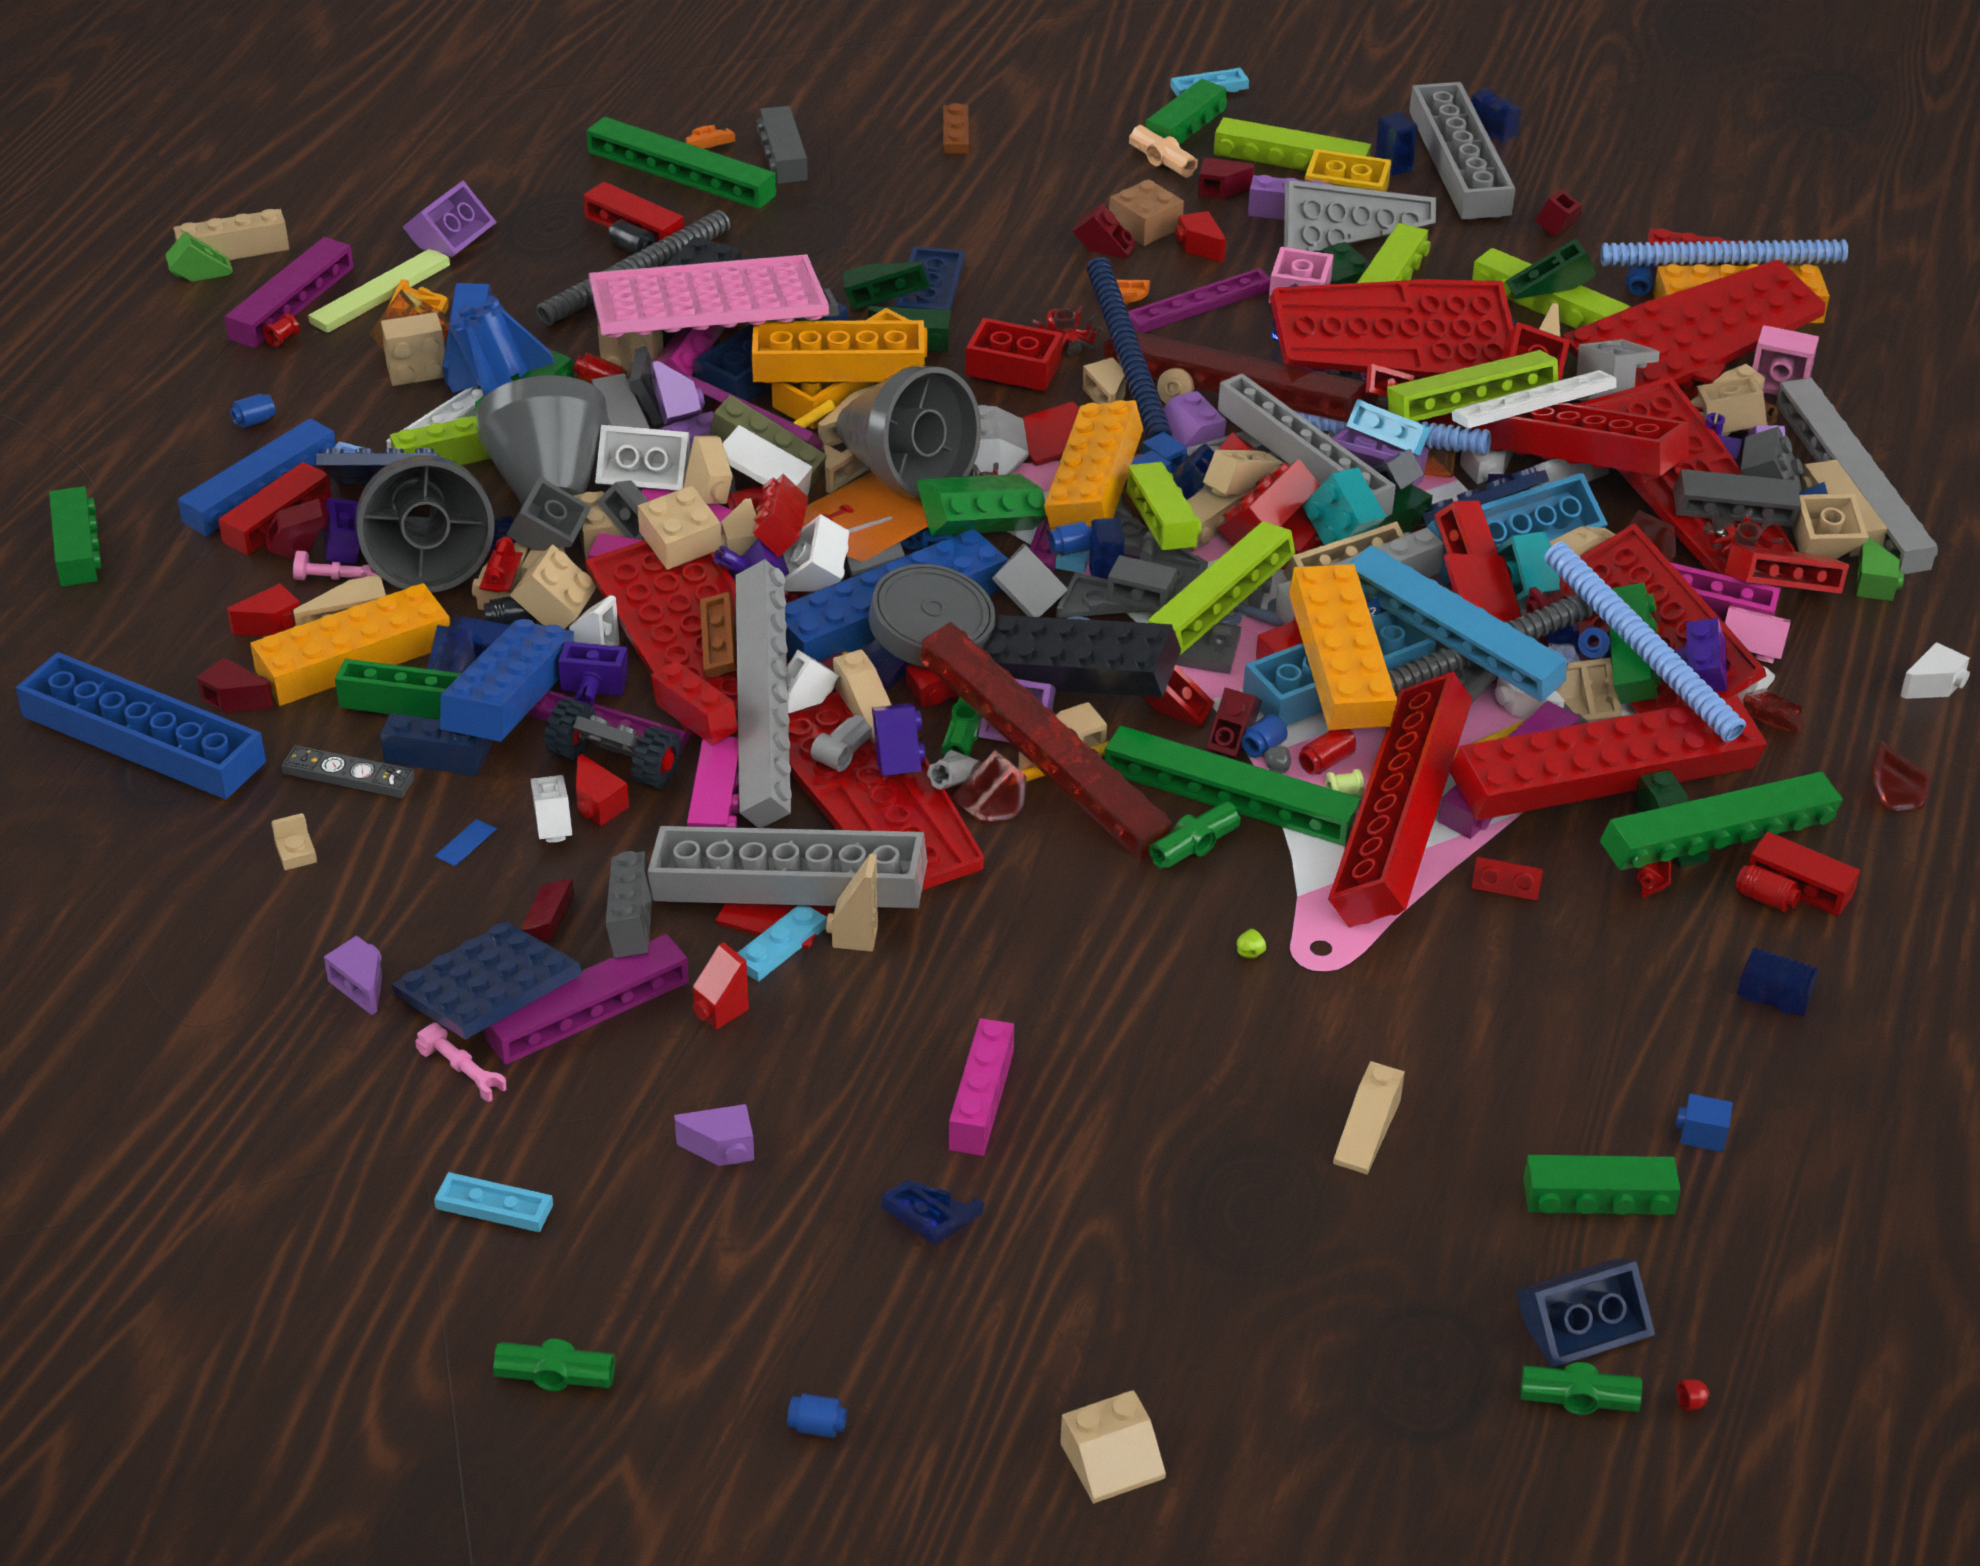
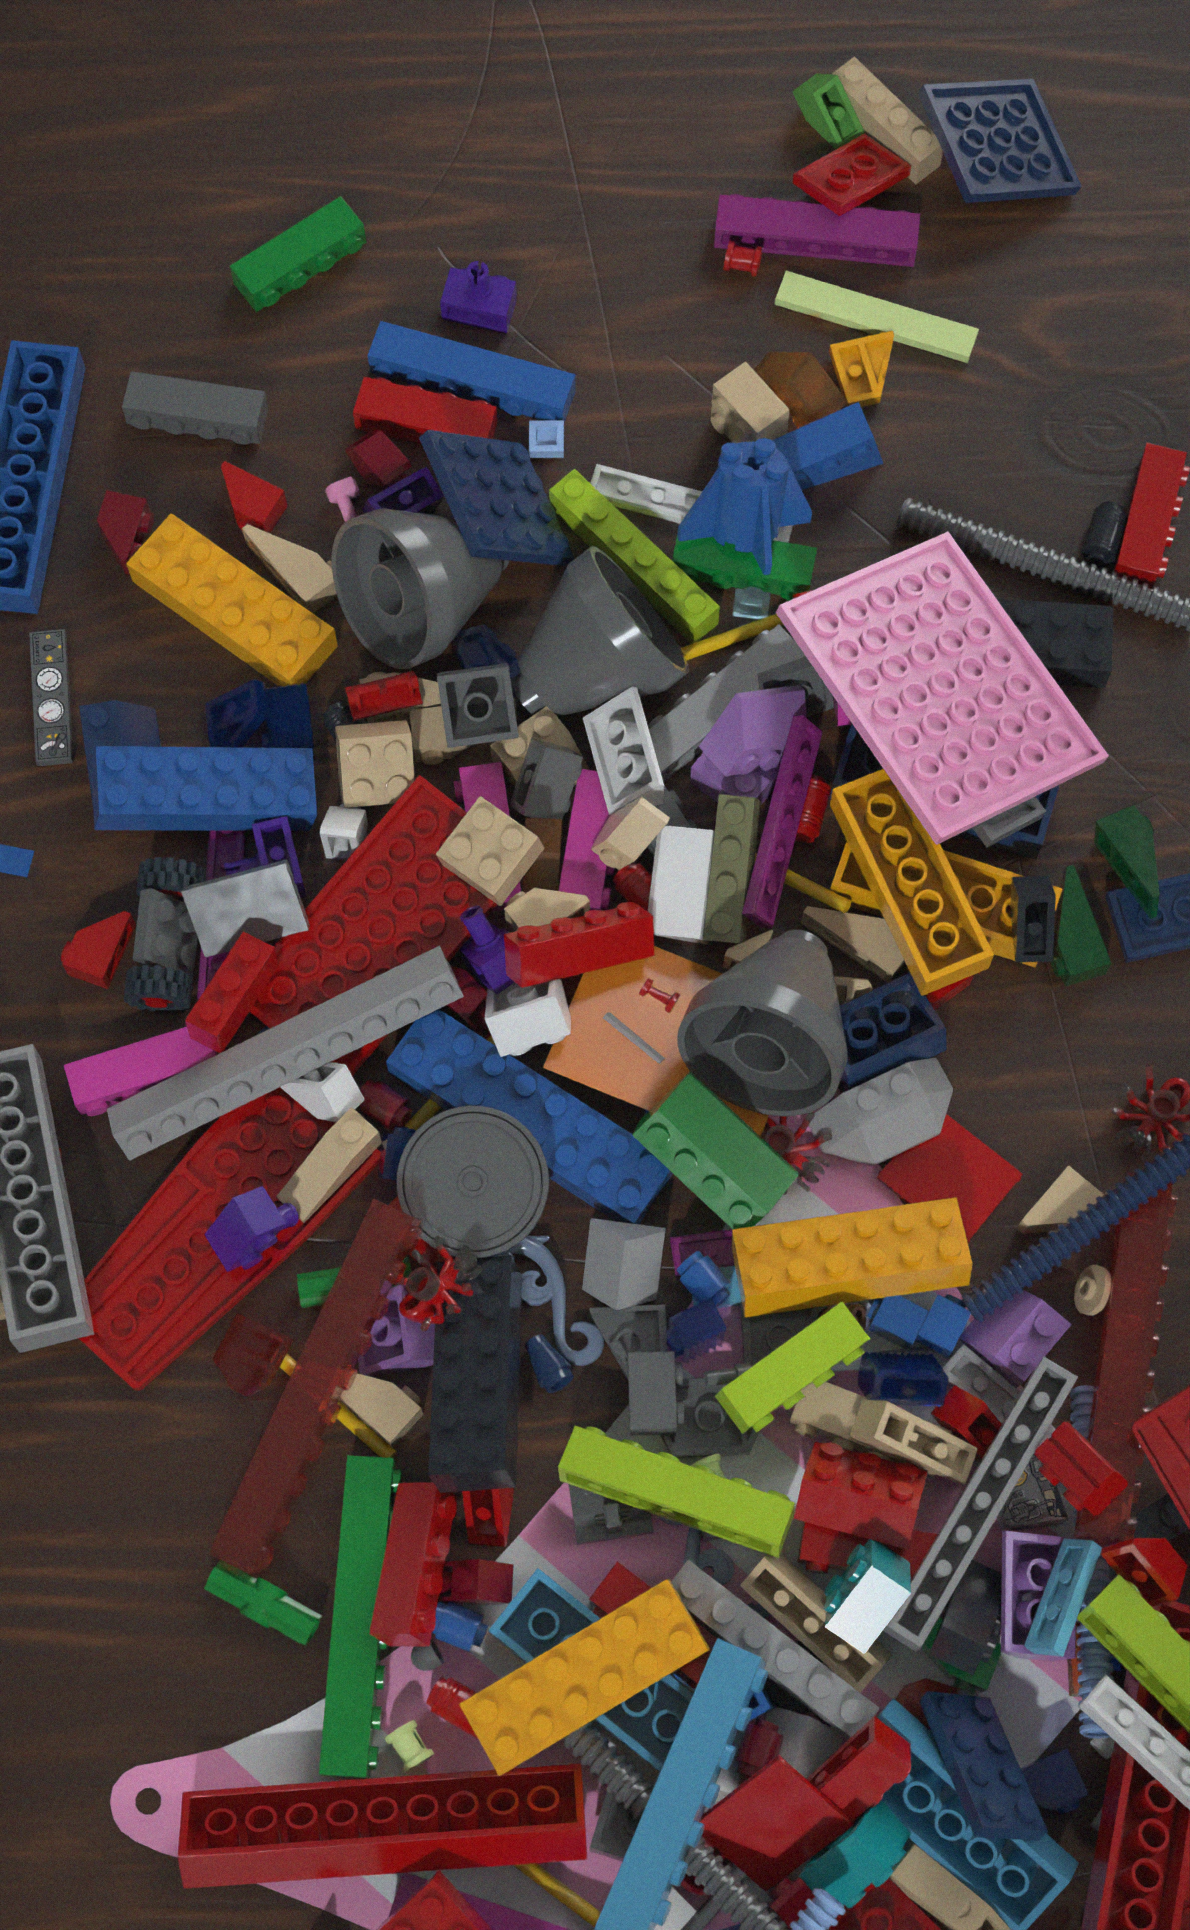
camera: 70 degrees right, 30 degrees up
(158, 623) = (195, 408): none -> dark grey brick
(199, 455) = (478, 299): none -> dark purple brick
(252, 410) = (583, 307): blue brick -> none
(262, 260) = (851, 174): none -> red tile
(297, 190) = (999, 140): none -> dark blue plate
(391, 688) = (168, 683): green brick -> none
(450, 222) = (1028, 327): medium lavender slope -> none
(551, 808) = (59, 915): white slope -> none
(624, 680) = (252, 901): none -> tile
(718, 634) = (358, 965): dark orange plate -> none
(838, 747) = (235, 1167): light grey piece -> none
(900, 305) = (1032, 918): none -> black slope
(952, 770) = (268, 1304): light grey piece -> none
(1004, 645) = (430, 1290): none -> animal
(1014, 354) = (1062, 1072): red brick -> none
(1211, 730) = (413, 1565): none -> red brick
(1251, 944) = (110, 1723): lime hinge -> none
(1307, 382) = (1080, 1468): none -> red brick

